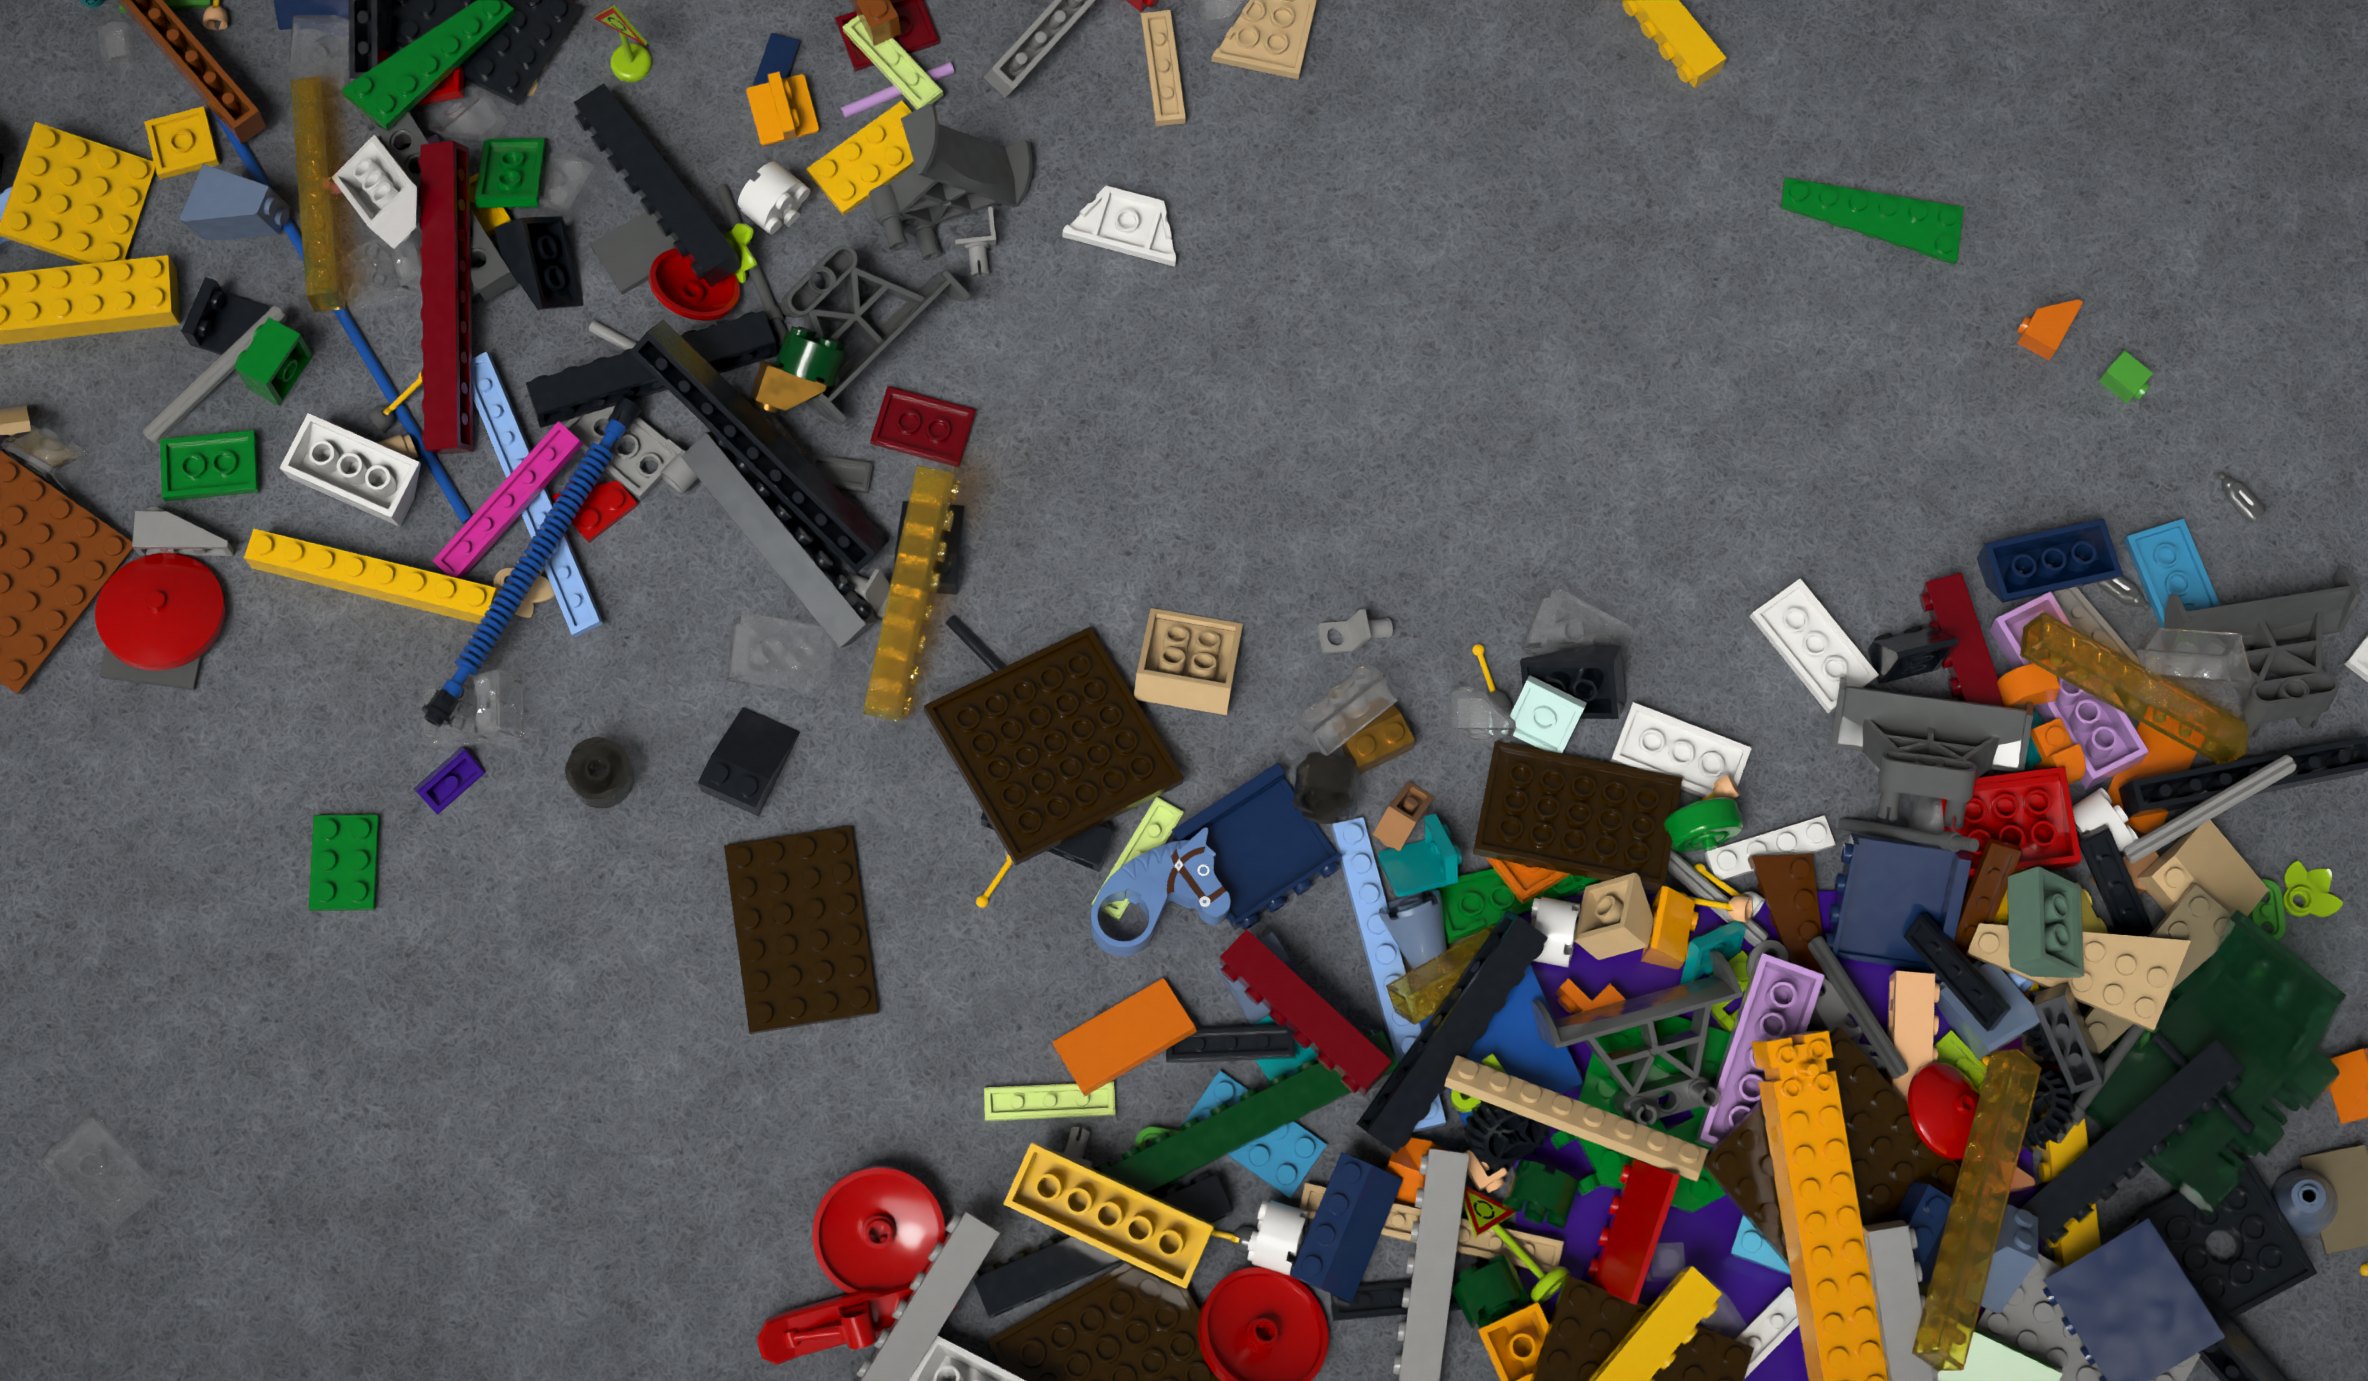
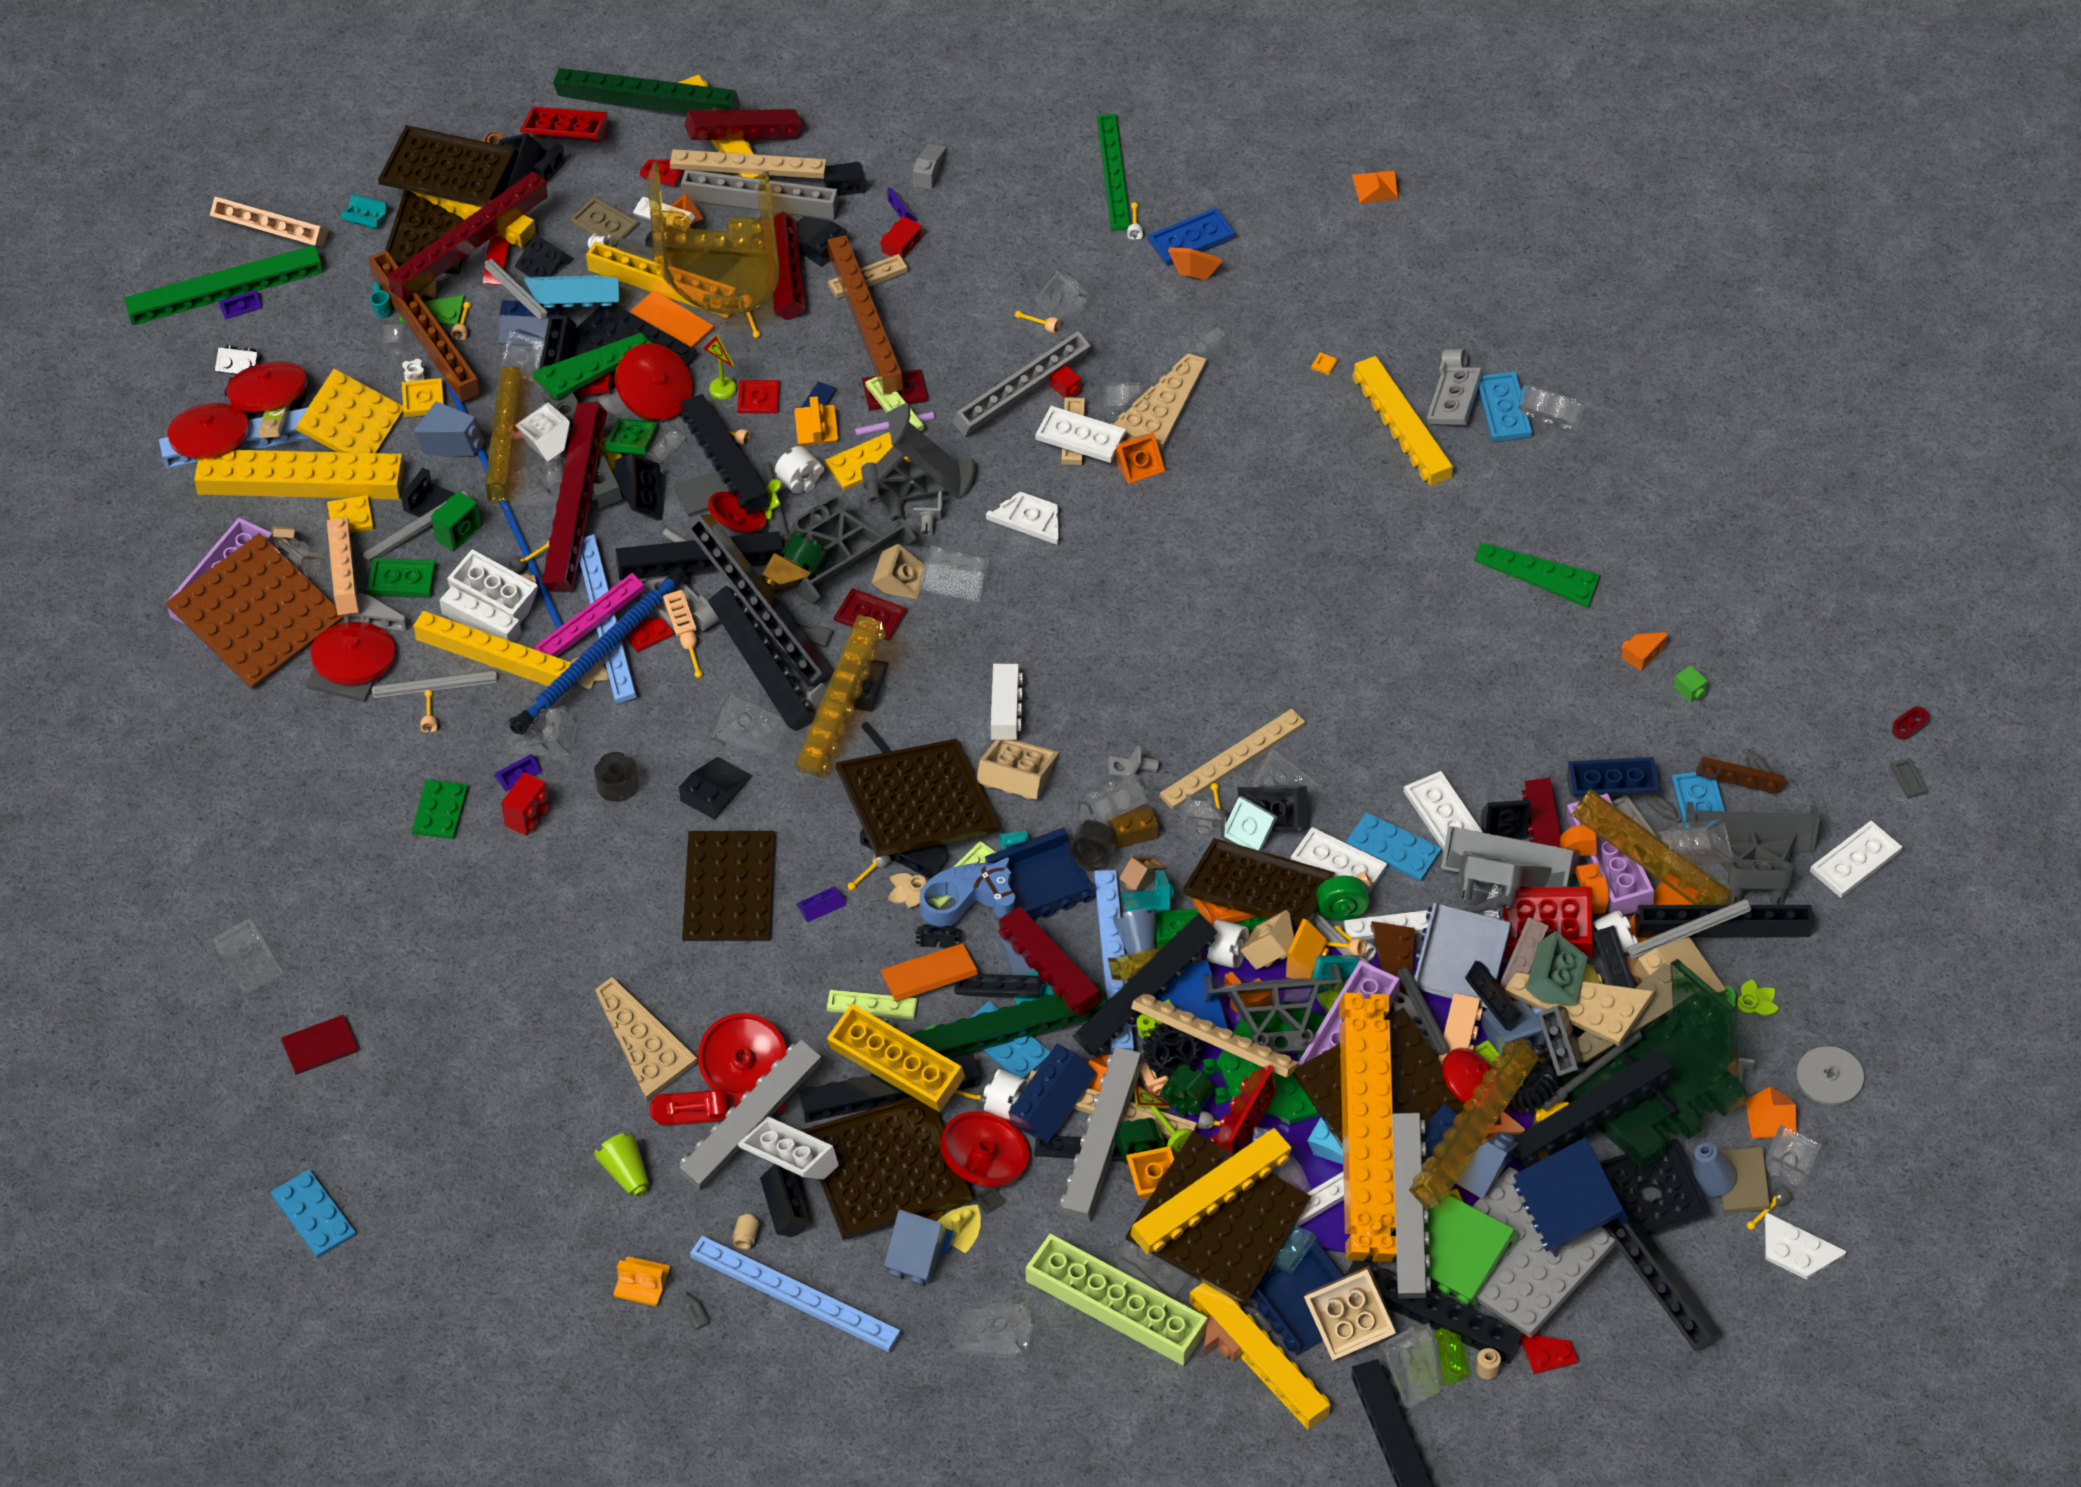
camera: 15 degrees right, 20 degrees down
(110, 365) = (355, 510): none -> yellow plate
(115, 469) = (342, 566): none -> light nougat brick
(158, 100) = (413, 370): none -> white brick
(240, 1303) = (319, 1044): none -> dark red tile
(294, 644) = (434, 684): none -> light grey axle
(299, 710) = (428, 720): none -> light nougat hinge
(342, 520) = (479, 615): none -> white brick
(473, 845) = (525, 804): none -> red brick
(526, 75) = (653, 382): none -> red dish
(627, 453) = (674, 601): none -> light nougat slope
(663, 516) = (689, 642): none -> hinge
(671, 144) = (739, 436): none -> light nougat hinge
(686, 70) = (758, 397): none -> red tile
(736, 1231) = (648, 1046): none -> tan wing
(942, 939) = (821, 904): none -> dark purple slope
(953, 352) = (898, 573): none -> tan slope
(1036, 343) = (955, 574): none -> clear slope
(1062, 898) = (905, 889): none -> tan plate
(1139, 968) = (929, 935): none -> black hinge
(1151, 555) = (1005, 702): none -> white brick
(1177, 77) = (1080, 434): none -> white plate
(1207, 792) = (1013, 838): none -> teal piece
(1268, 102) = (1139, 457): none -> orange slope
(1495, 599) = (1232, 758): none -> tan plate
(1575, 1231) = (1206, 1121): none -> light grey hinge
(1753, 713) = (1394, 846): none -> dark azure plate
(2225, 525) = (1740, 775): none -> reddish brown plate

